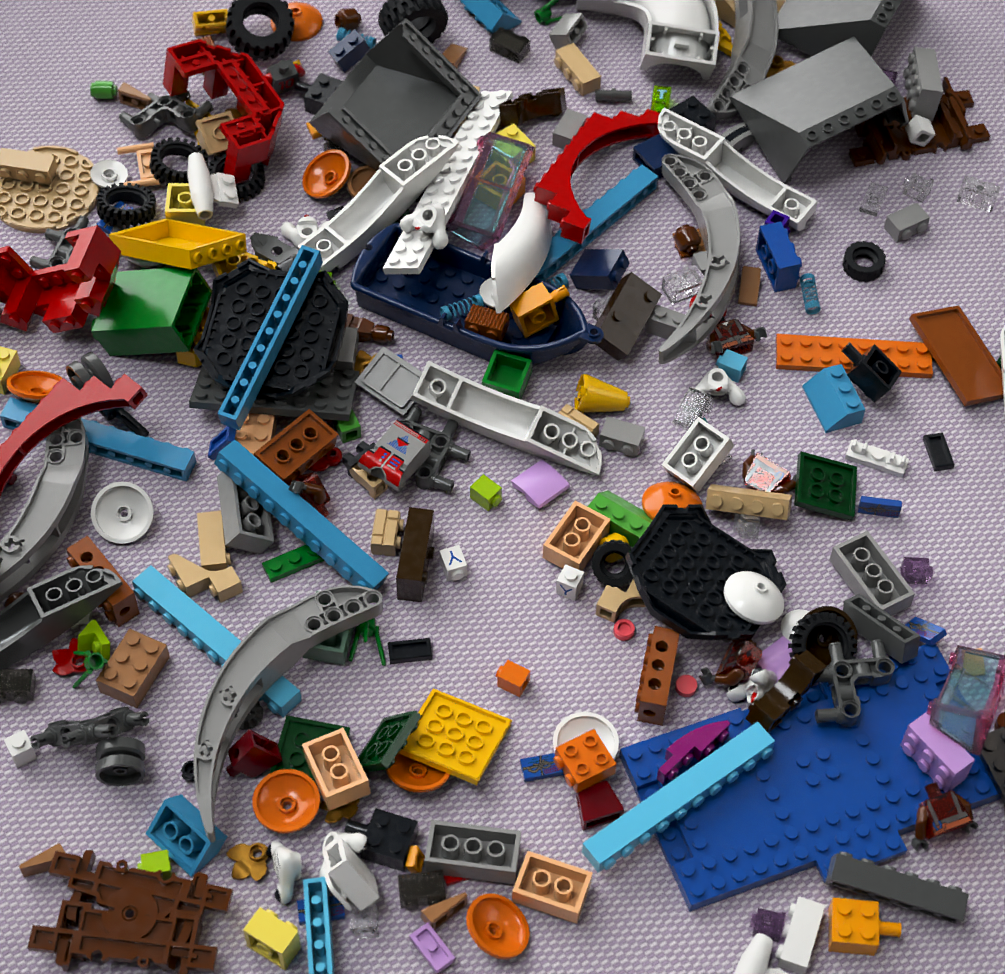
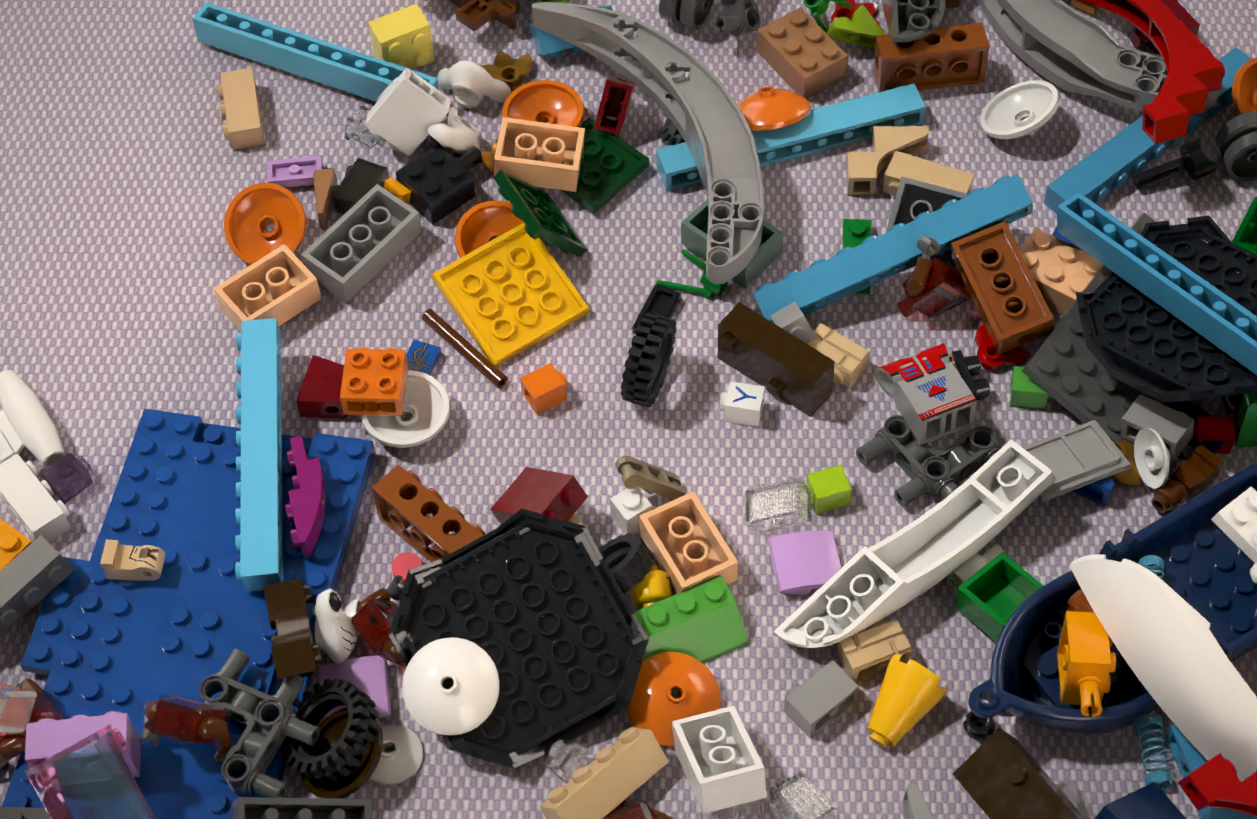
camera: 125 degrees right, 0 degrees up
(214, 650) = (773, 108): none -> orange dish
(369, 341) = (1151, 458): none -> white dish
(387, 552) = (793, 321): none -> light grey brick
(462, 601) = (648, 359): none -> black tyre
(509, 747) = (463, 347): none -> reddish brown piece
(518, 506) = (777, 505): none -> clear brick
(547, 574) = (649, 478): none -> dark tan plate
(581, 362) = (979, 733): none -> black plate
(603, 624) = (542, 492): none -> dark red brick
(804, 820) = (132, 562): none -> tan leg
(884, 706) = (187, 722): none -> torso

